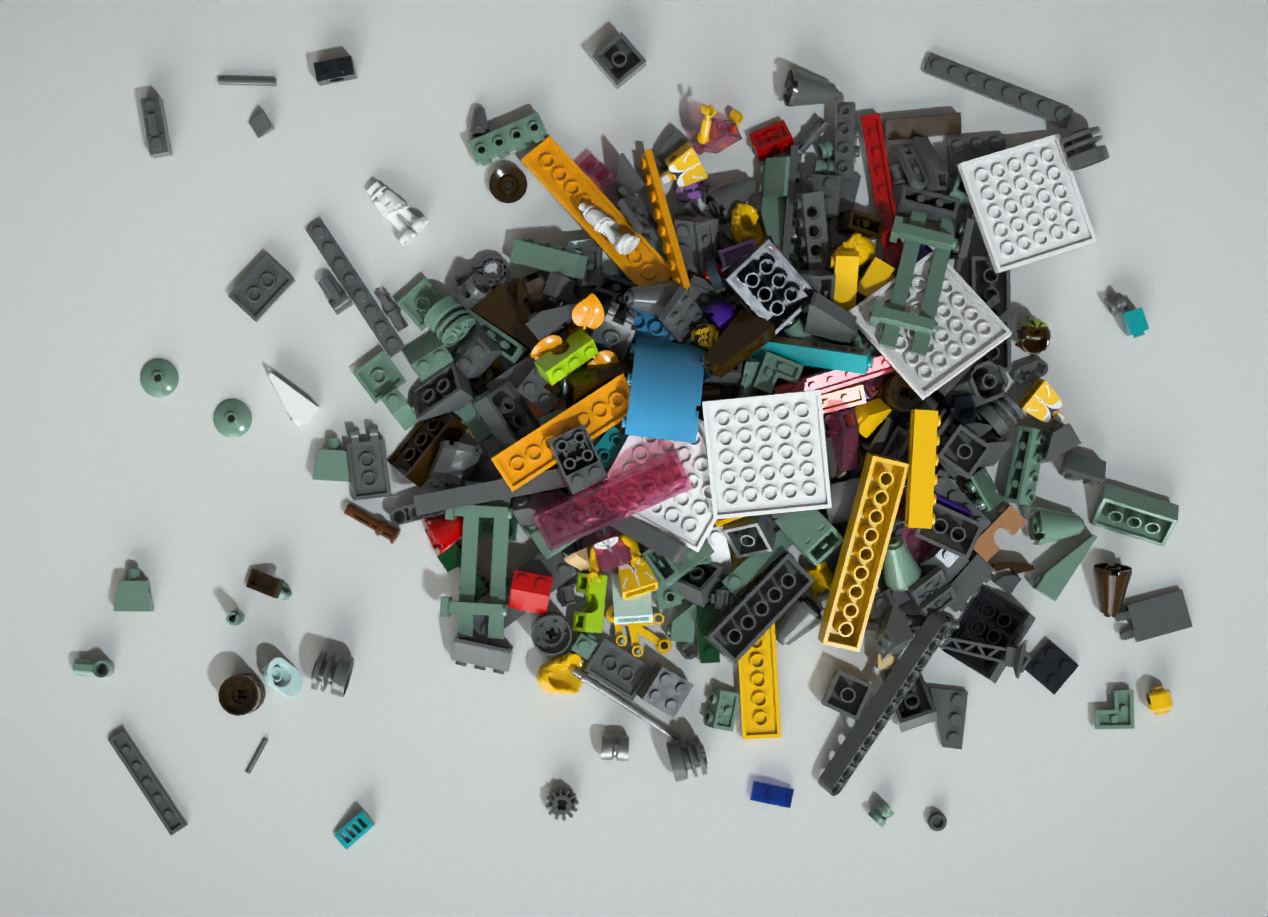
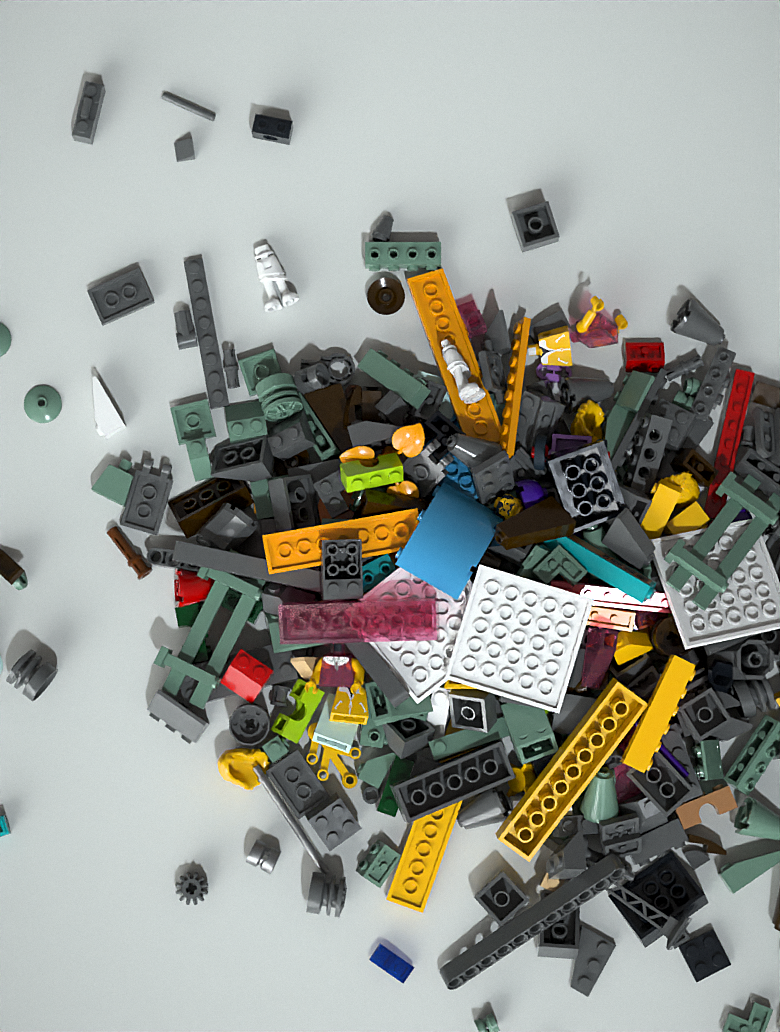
camera: 25 degrees right, 5 degrees down
(721, 599) = (421, 758): dark grey gear -> none

